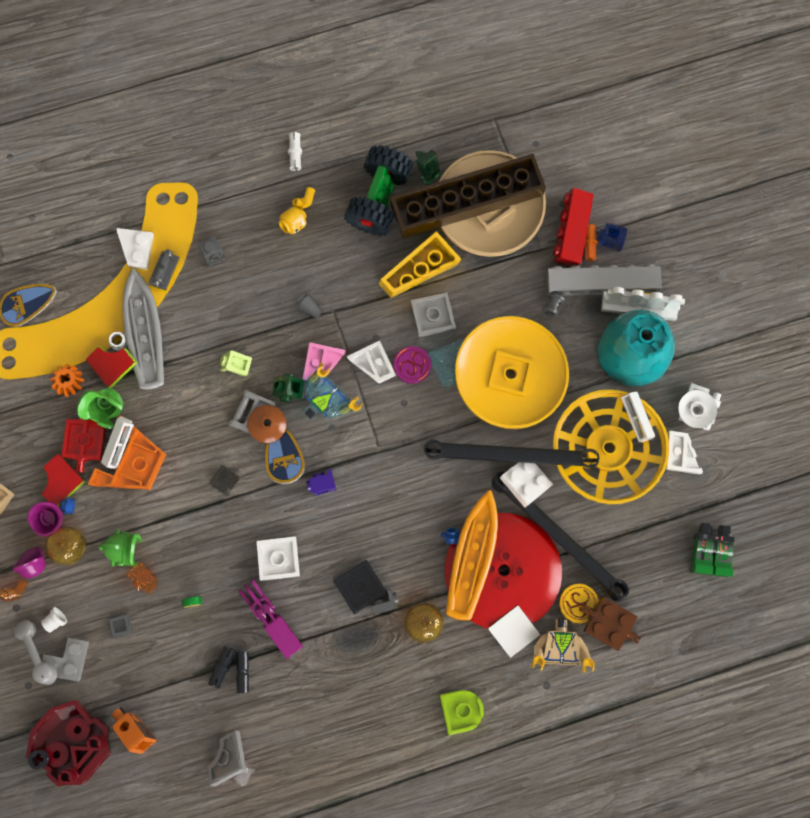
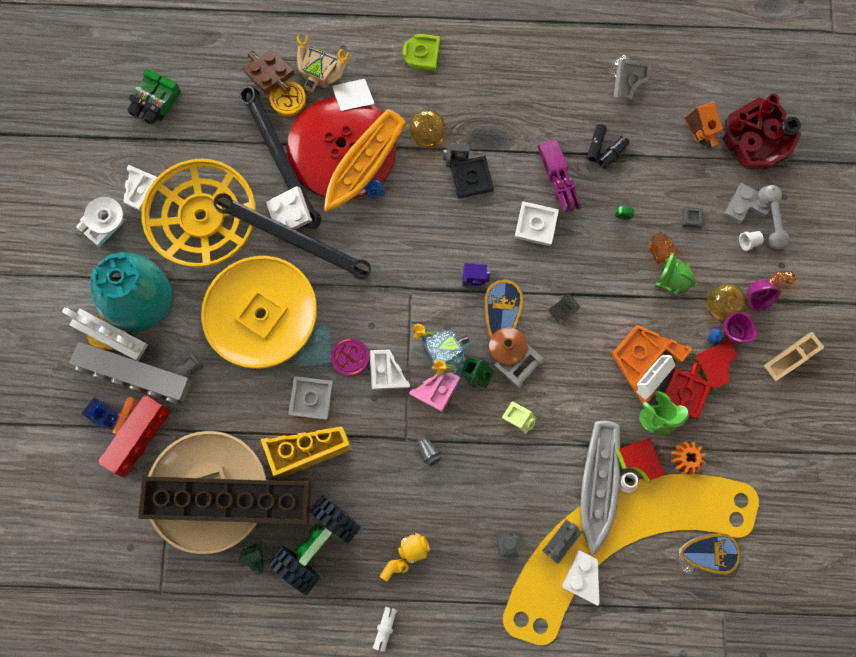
camera: 160 degrees left, 0 degrees up
(641, 416) = (158, 224): white piece -> none

